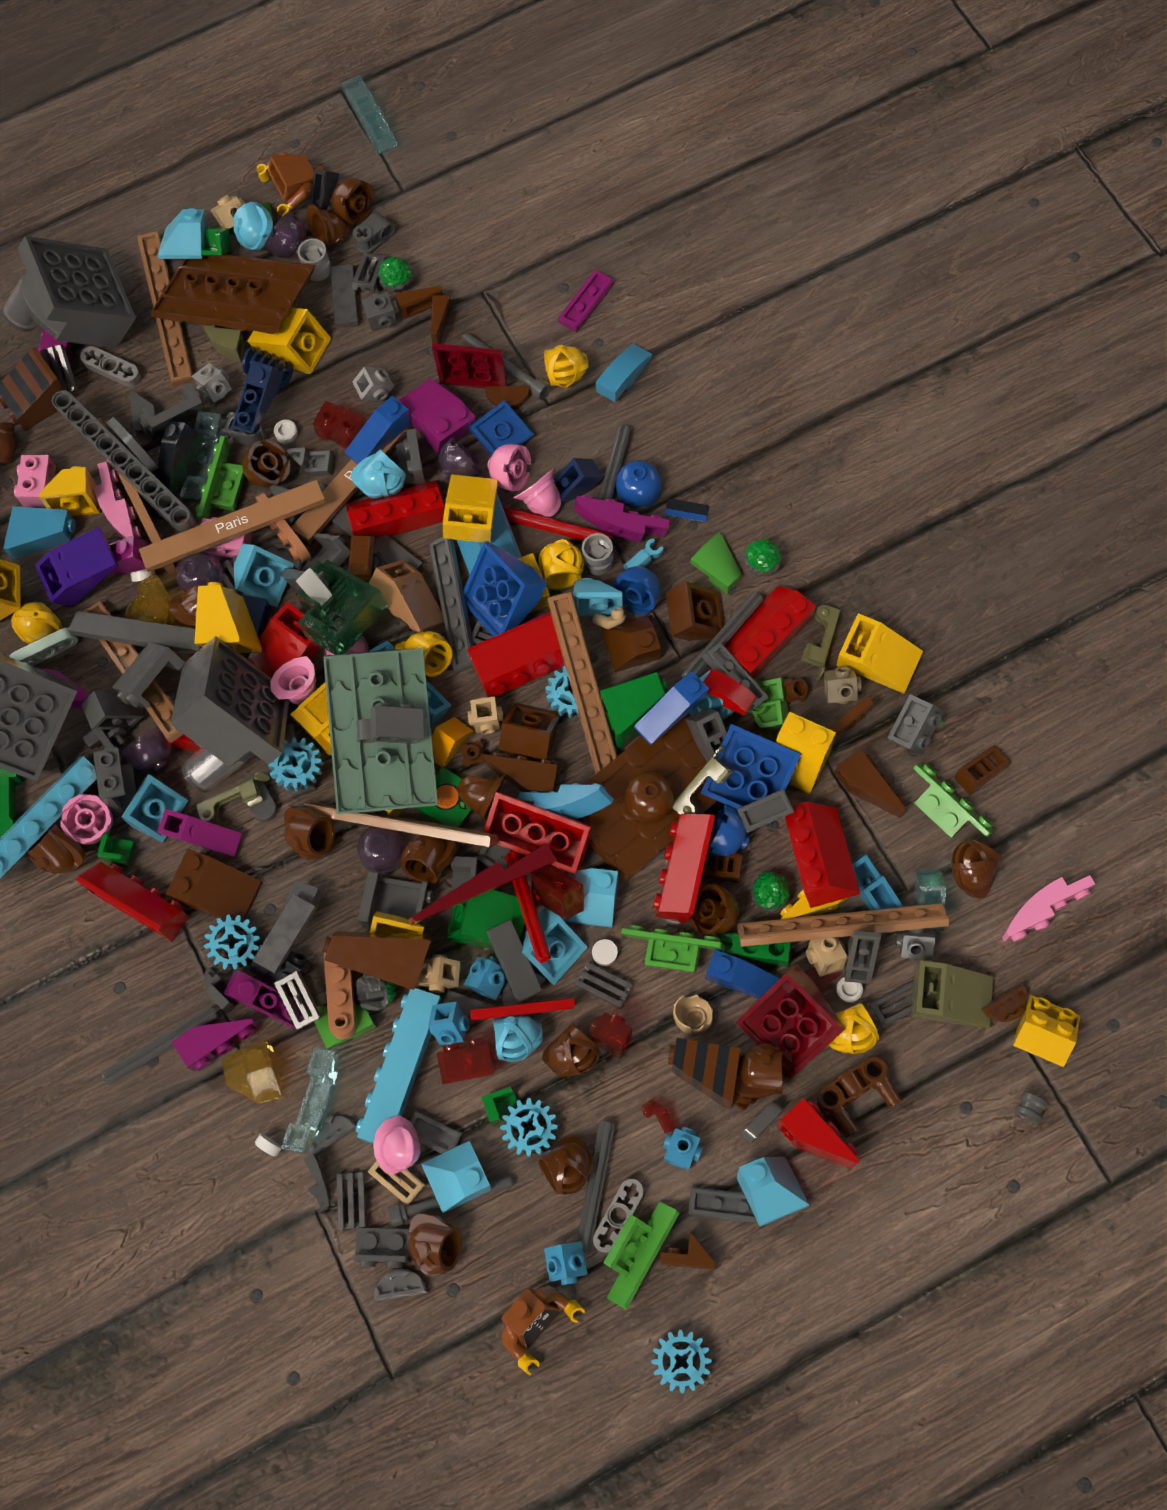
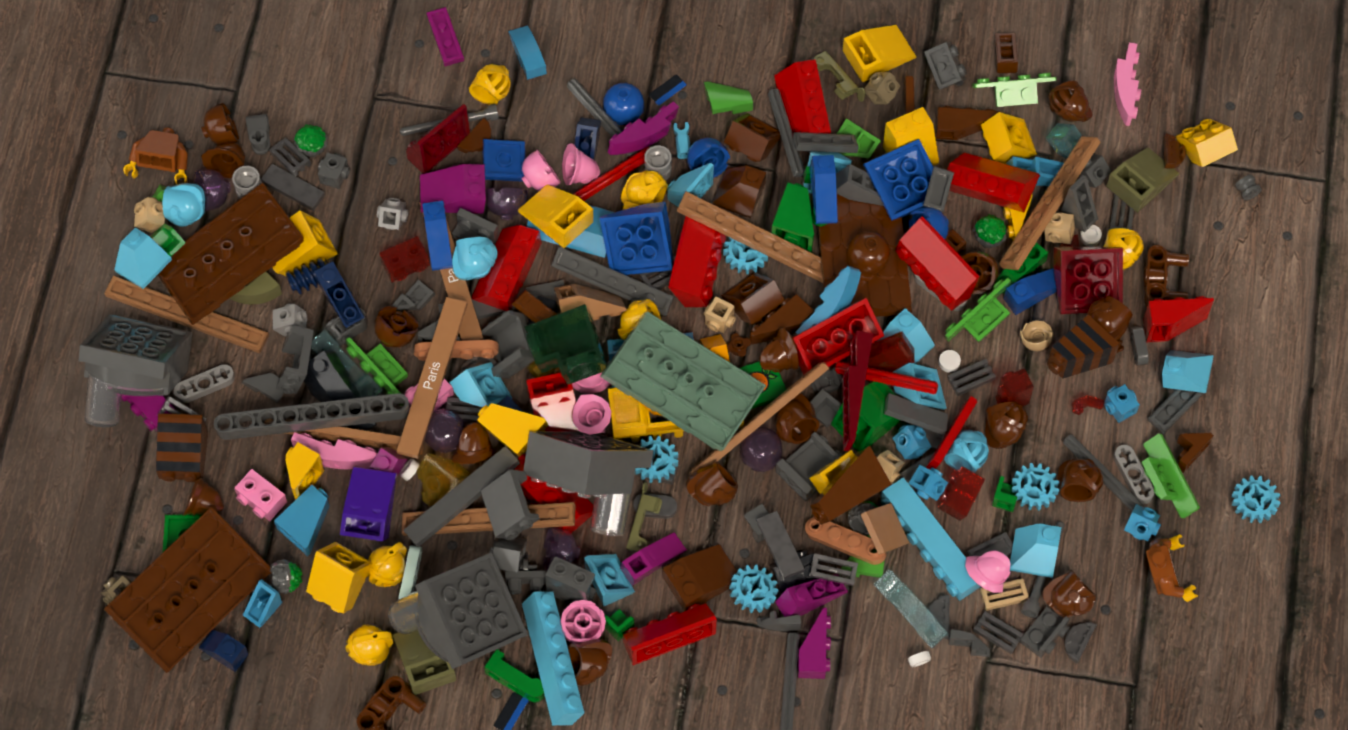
camera: 60 degrees left, 5 degrees down
(133, 446) = (305, 396): dark grey tile -> none
(253, 1073) = (859, 636): clear yellow slope -> none
(285, 431) = (372, 300): white tile -> none
(313, 586) = (542, 345): white sticker -> none
(323, 188) = (184, 136): black slope -> none
(369, 114) = (150, 68): clear light blue slope -> none
(369, 1017) = (884, 528): none -> medium nougat tile
(391, 725) = (693, 364): dark grey hinge -> none
(416, 301) = (346, 140): reddish brown slope -> none
(440, 313) = (371, 135): reddish brown slope -> none
(617, 617) = (716, 189): tan arm -> none
(715, 769) = (887, 196): piece -> none
(734, 694) = (841, 148): red slope -> none
(762, 557) = (748, 67): green piece -> none
(801, 690) = (860, 117): reddish brown plate -> none
(887, 837) = (1007, 138): none -> yellow slope

